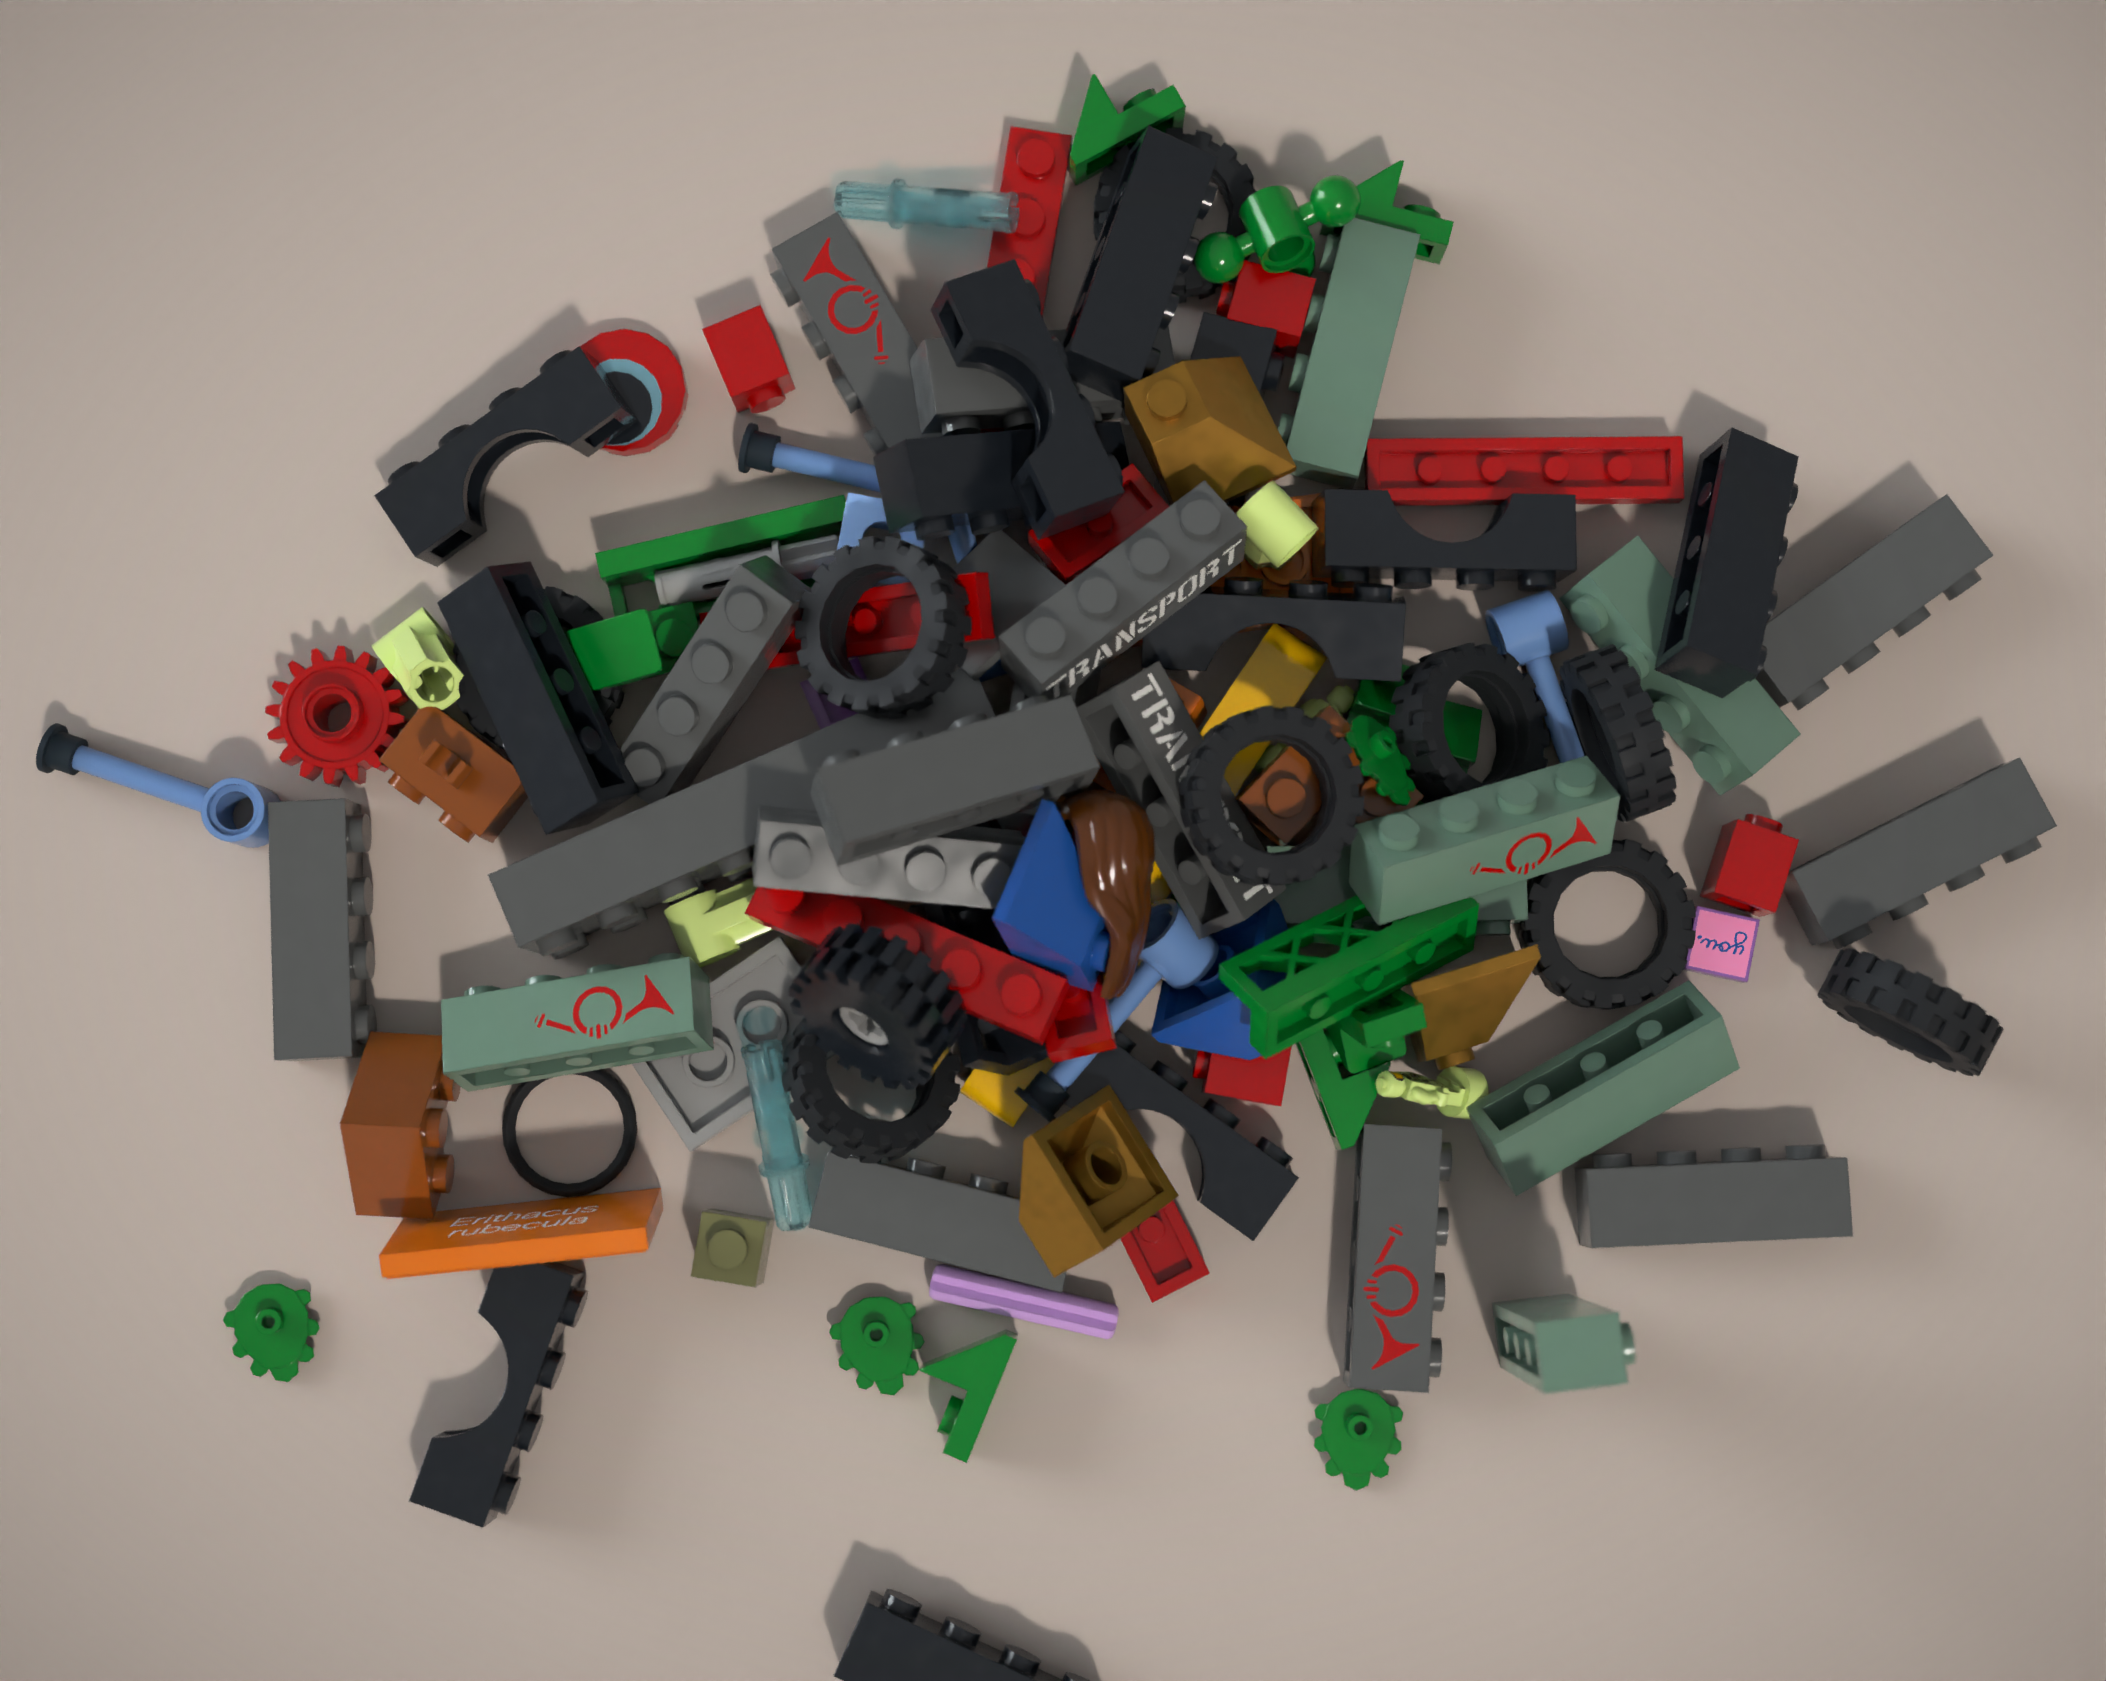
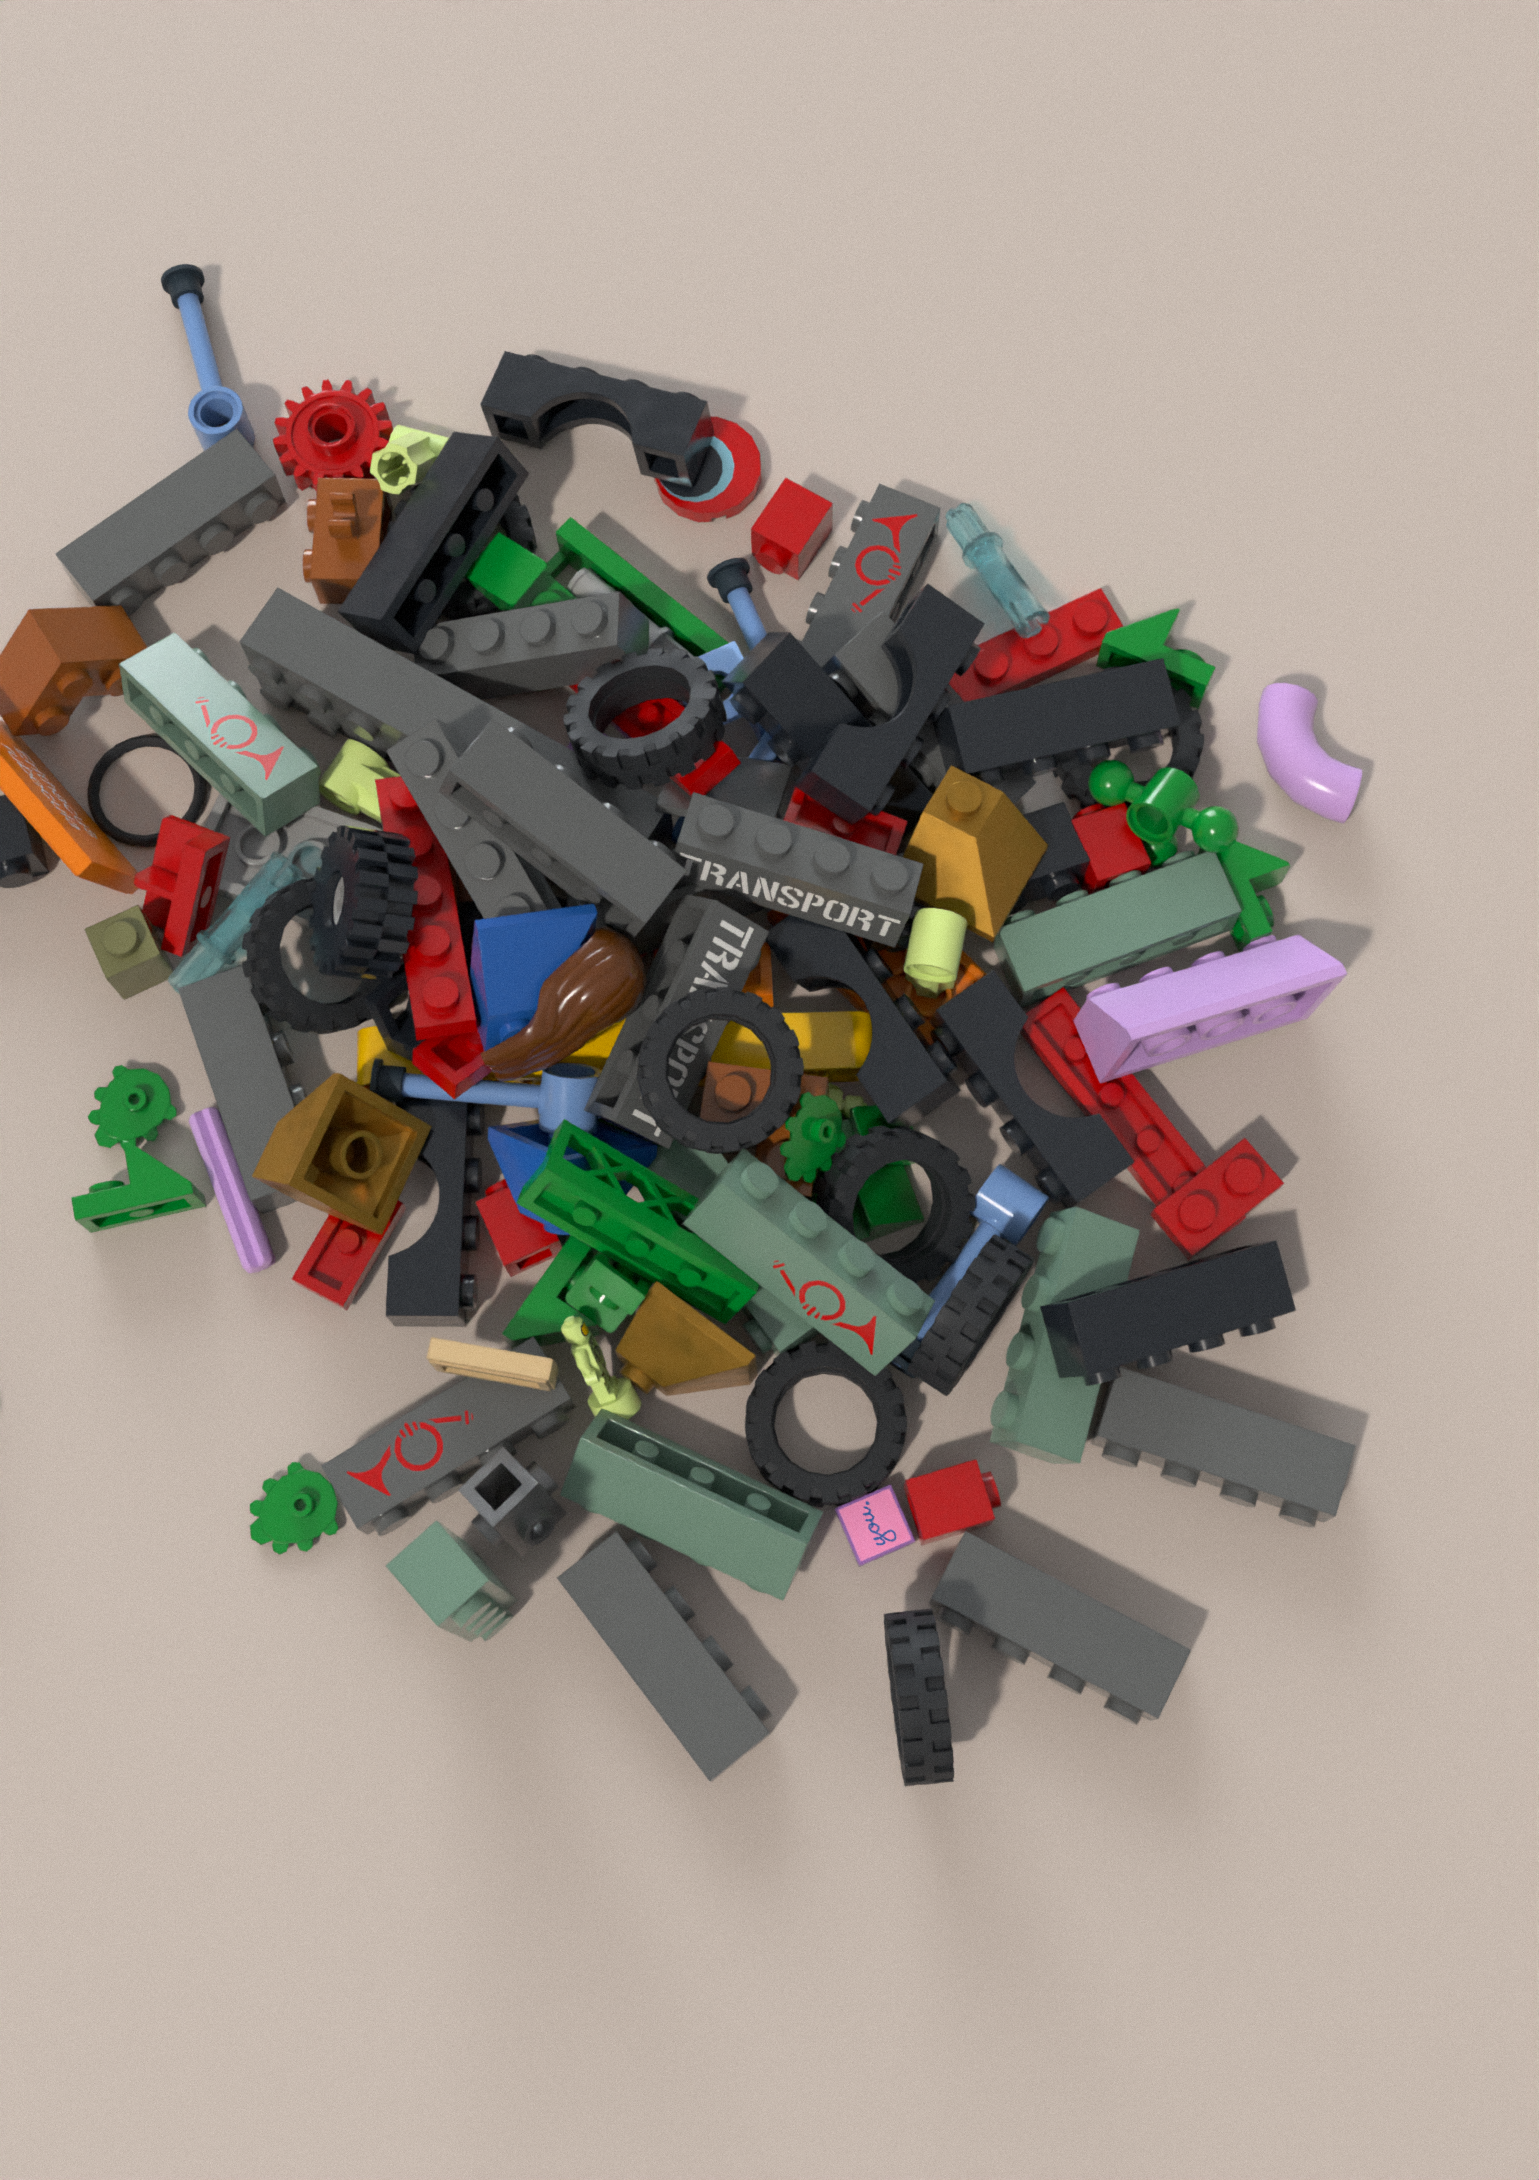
camera: 55 degrees right, 10 degrees down
(701, 1155) = (183, 881): none -> red panel
(1302, 78) = (1296, 757): none -> lavender cylinder
(1375, 1177) = (492, 1364): none -> tan tile
(1476, 1245) = (513, 1502): none -> flat silver brick
(1478, 328) = (1204, 1005): none -> lavender slope
(1653, 449) = (1216, 1199): none -> red plate

